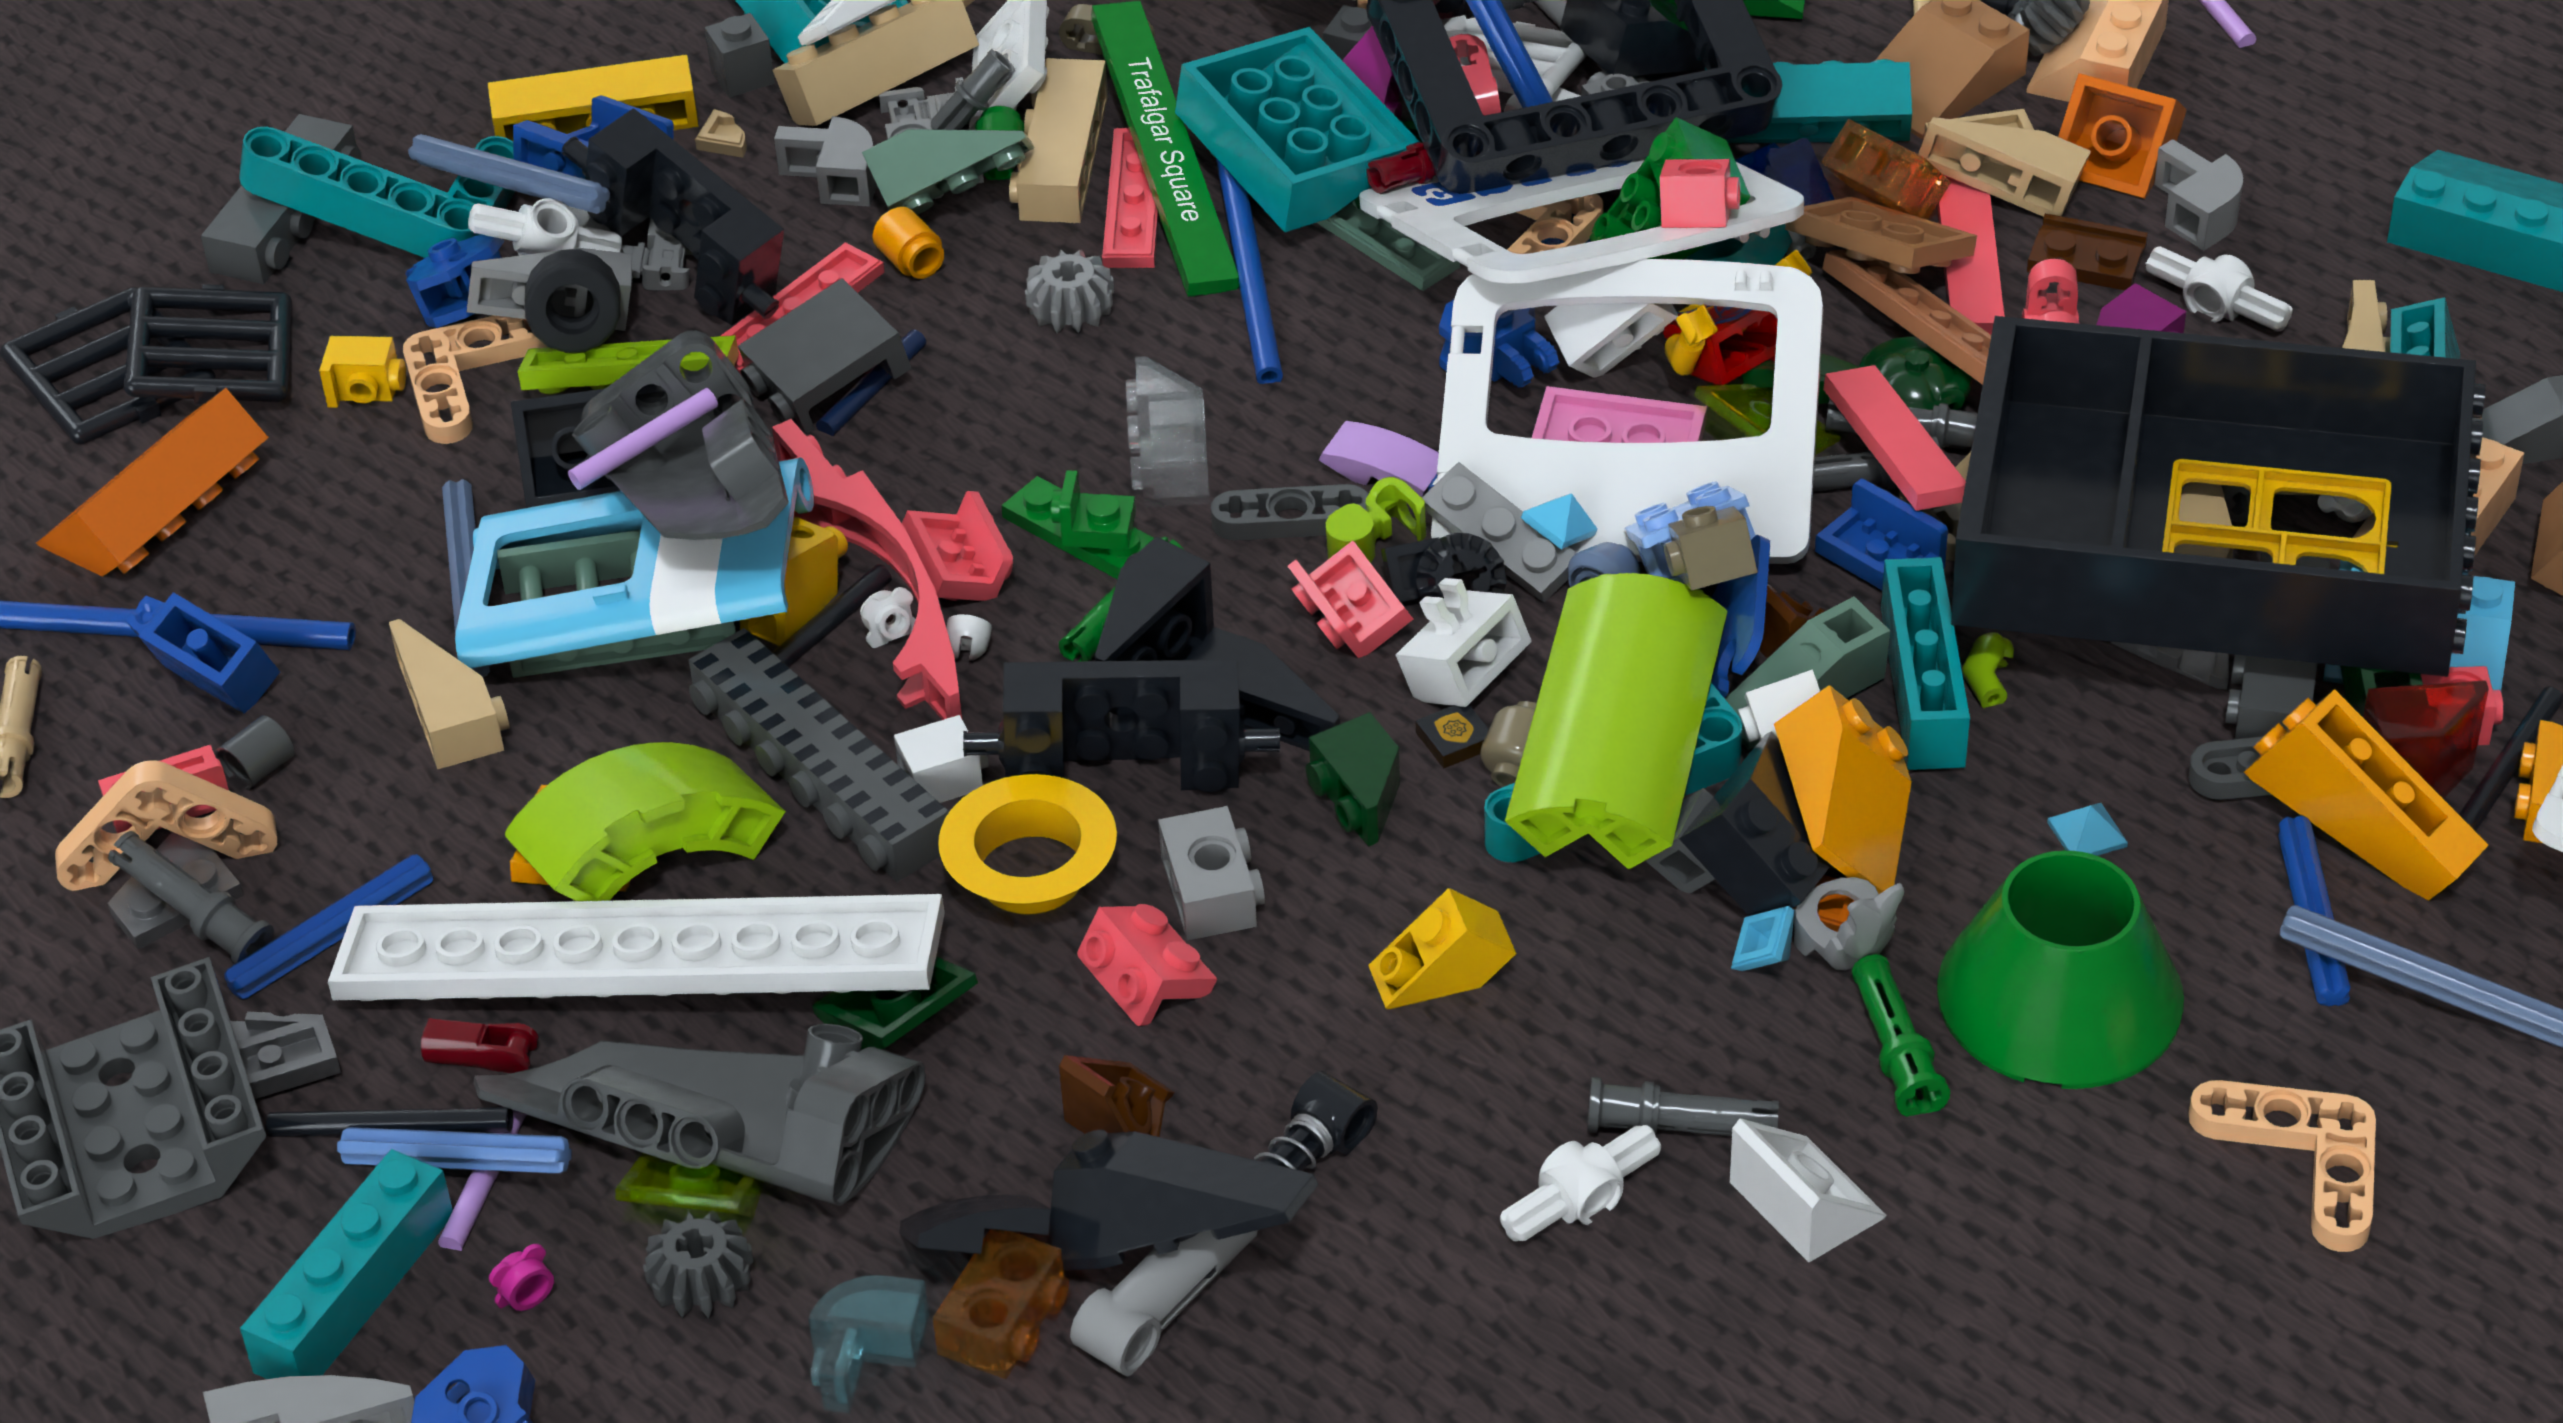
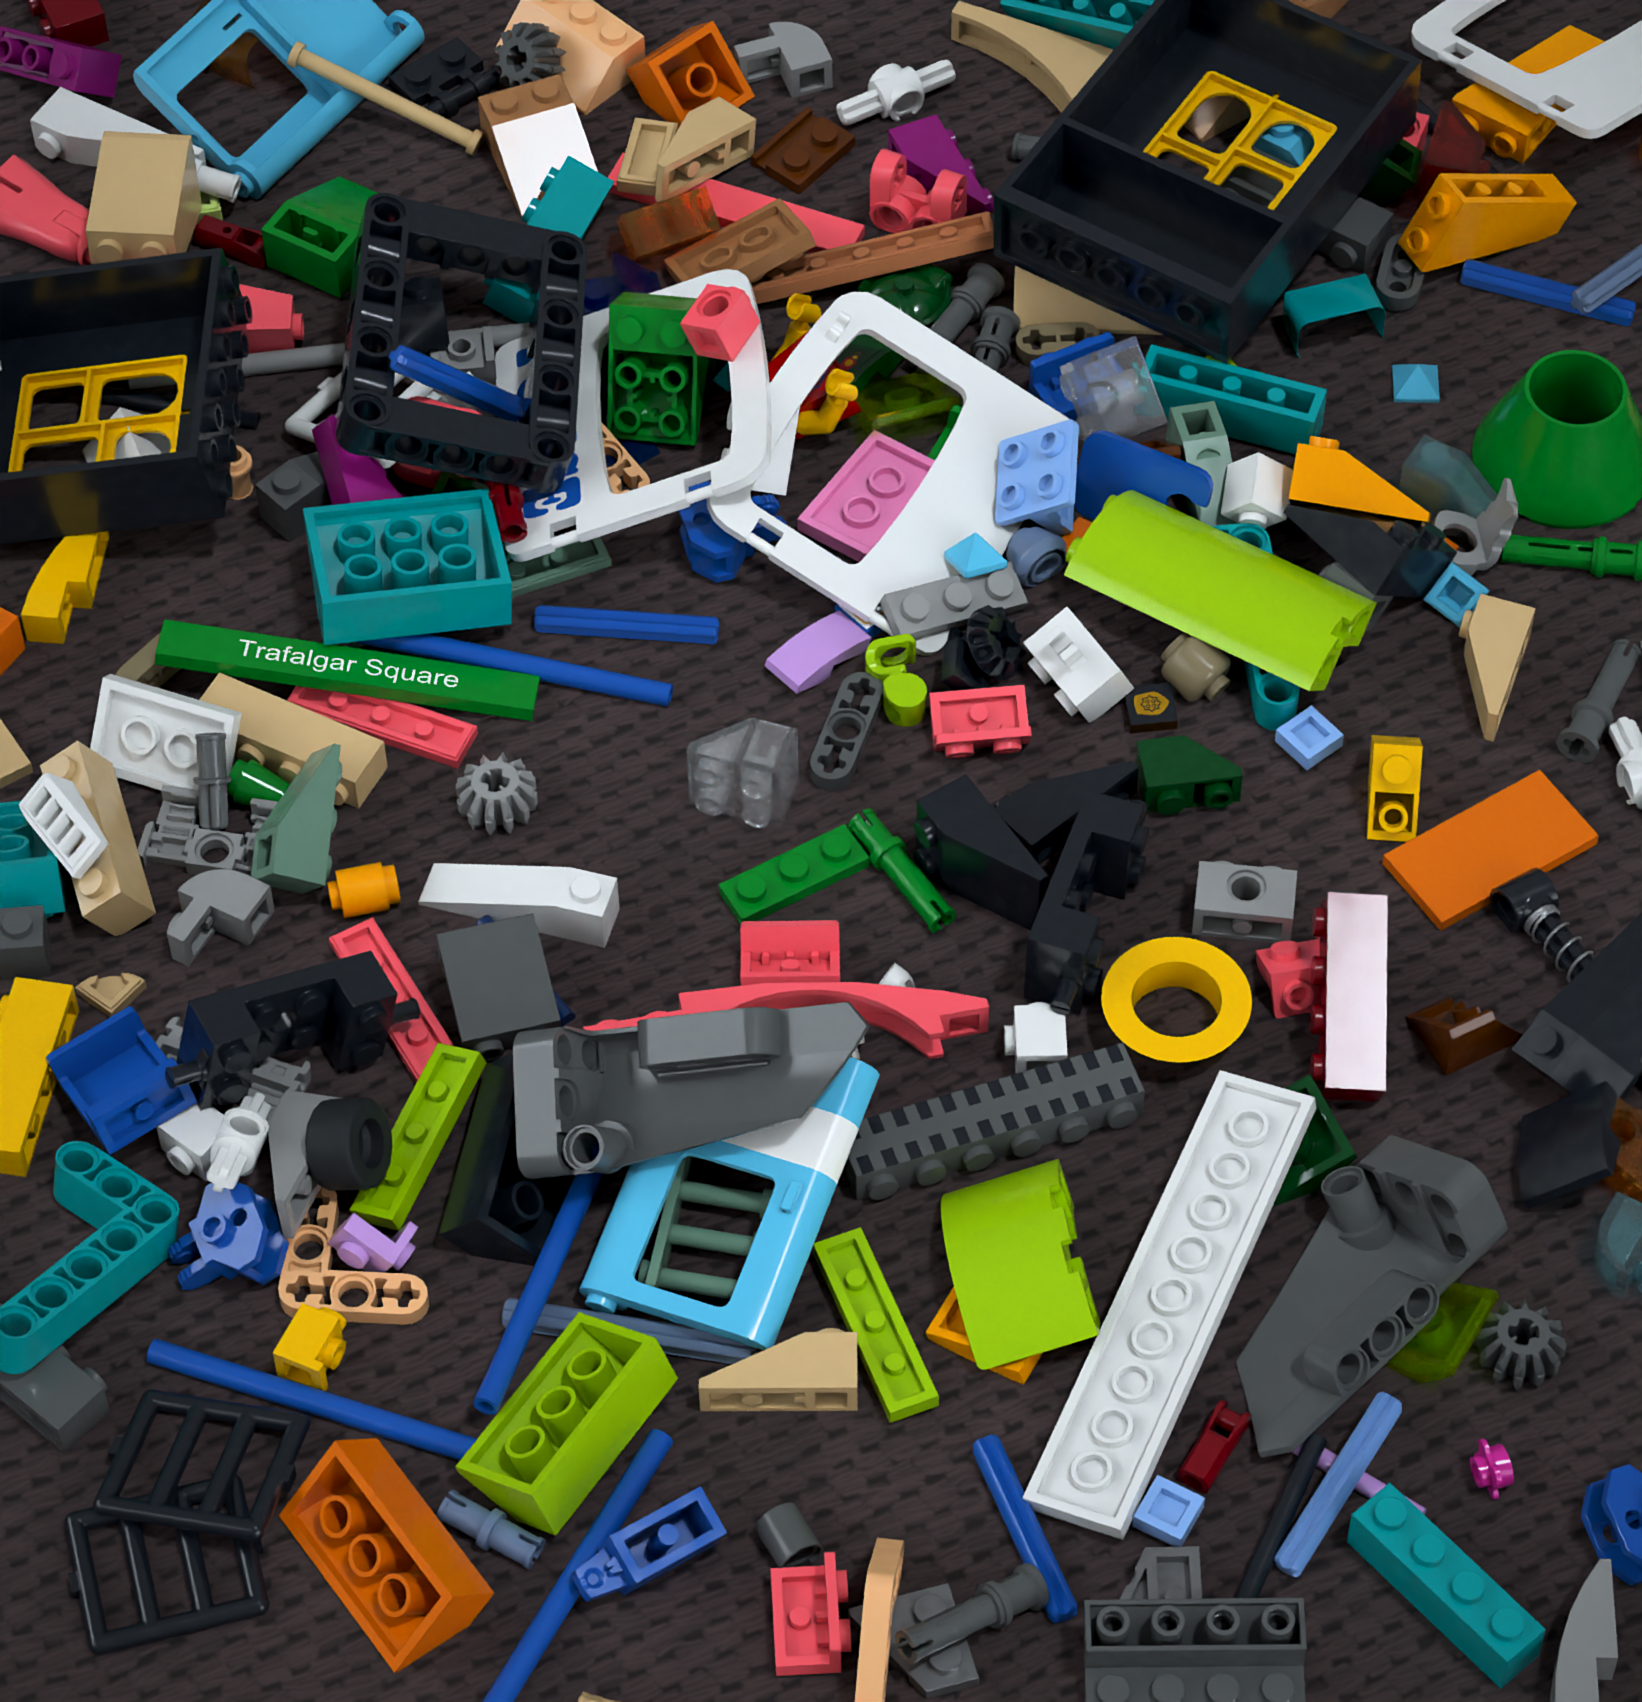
camera: 70 degrees left, 10 degrees up
(203, 549) = (490, 1529): none -> sand blue pin
(309, 410) = (309, 1399): none -> blue piece
(327, 557) = (568, 1421): none -> lime slope
(380, 1028) = (1168, 1511): none -> light blue plate
(452, 488) = (537, 1291): none -> blue piece
(480, 367) = (369, 1249): none -> lavender bracket
(509, 173) = (154, 1144): sand blue axle -> none
(533, 743) = (881, 1332): none -> lime plate
(642, 438) = (623, 1117): lavender bar -> none
(951, 358) = (563, 899): none -> white slope
(1090, 975) = (1351, 996): none -> brick
(1092, 519) = (815, 852): green bracket -> none
(1345, 320) = (626, 624): none -> blue axle
(1418, 1074) = (1497, 839): none -> orange tile
(1478, 869) = (1309, 737): none -> light blue plate
(1681, 995) = (1493, 653): none -> tan slope
(1710, 547) = (1104, 462): dark tan brick -> none
(1851, 549) = (1112, 391): none -> clear slope
(1895, 437) = (1007, 323): coral tile -> none
(1930, 876) = (1444, 480): none -> clear light blue slope
(2137, 703) = (1330, 301): none -> teal piece

